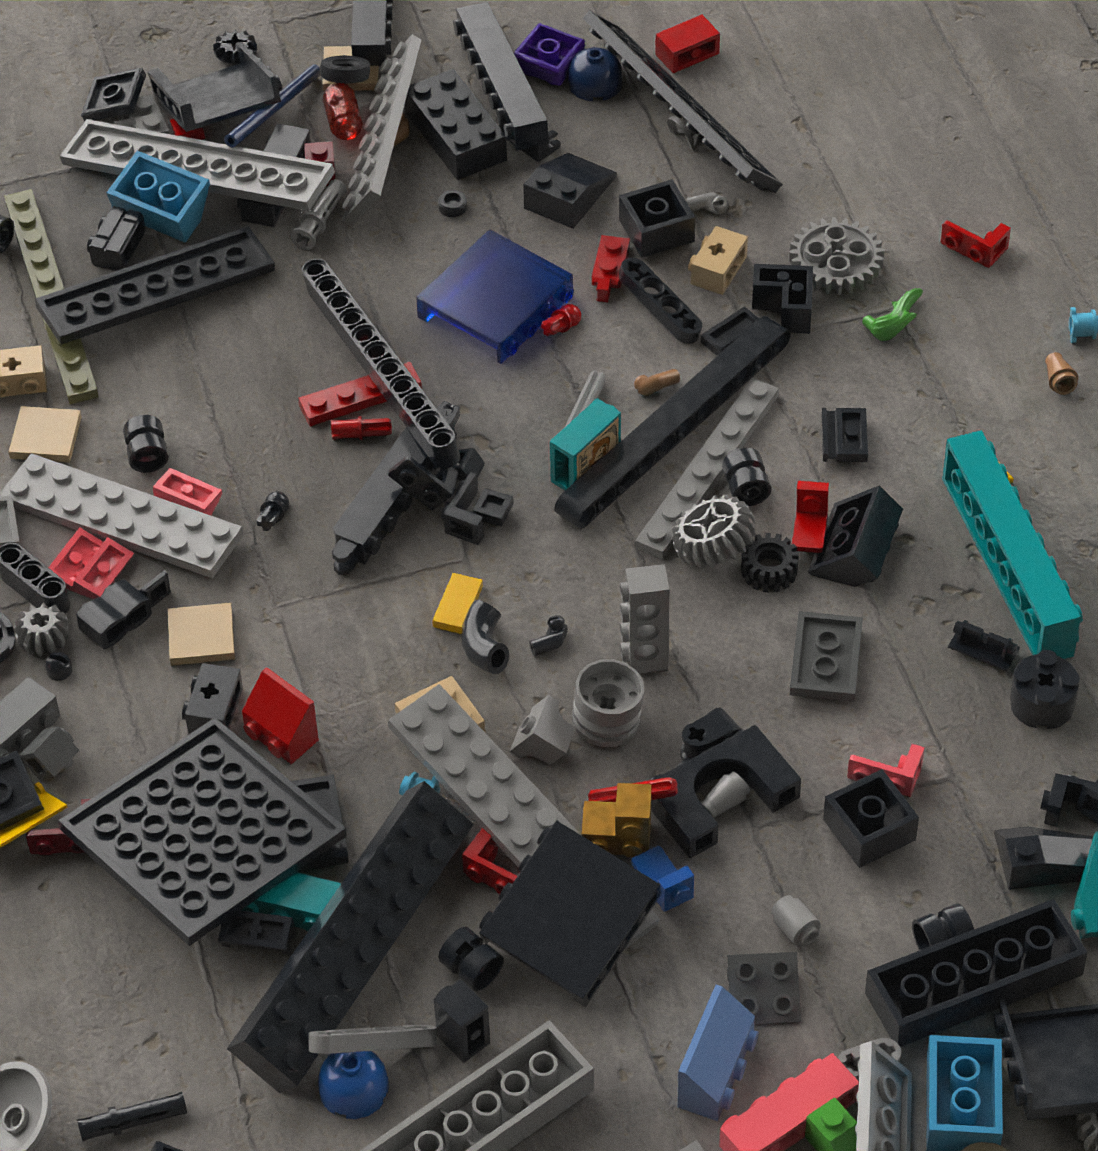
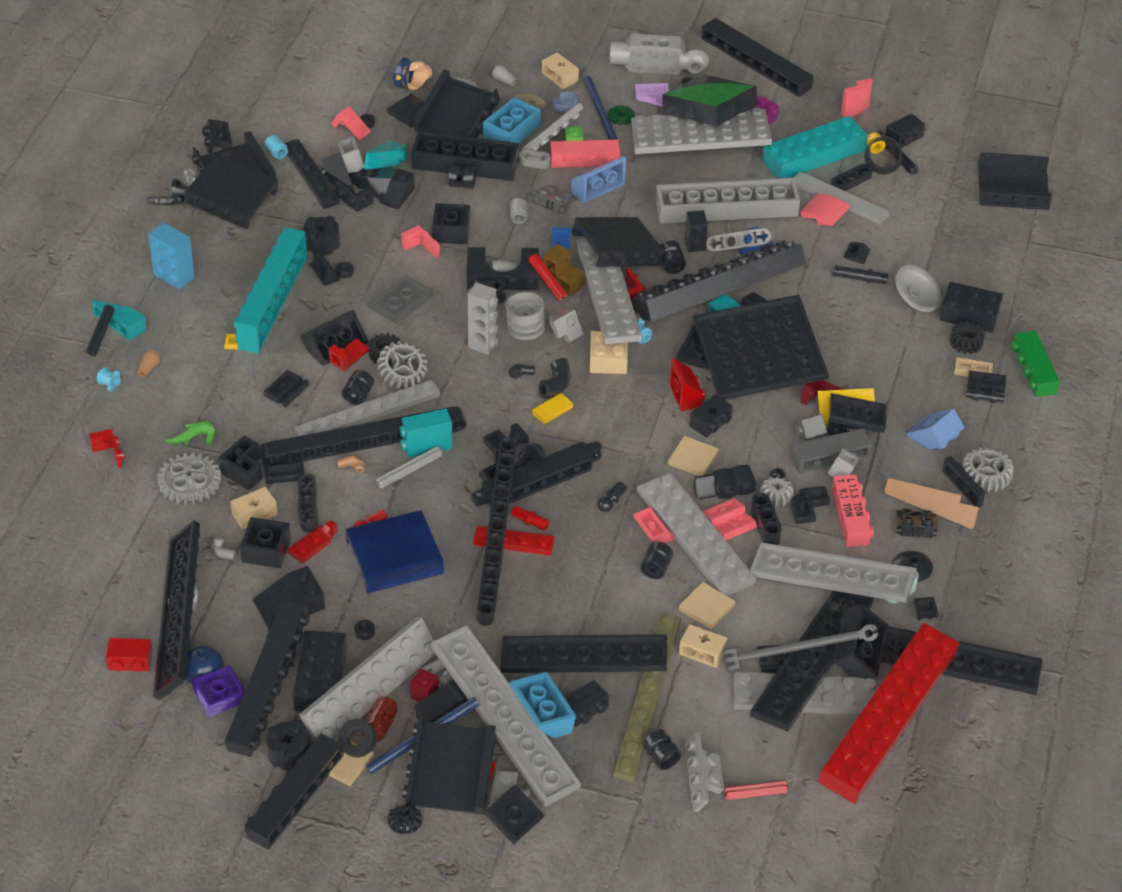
camera: 150 degrees left, 5 degrees down
(426, 26) = (286, 743): none -> black brick
(959, 669) = (344, 270): none -> black tile

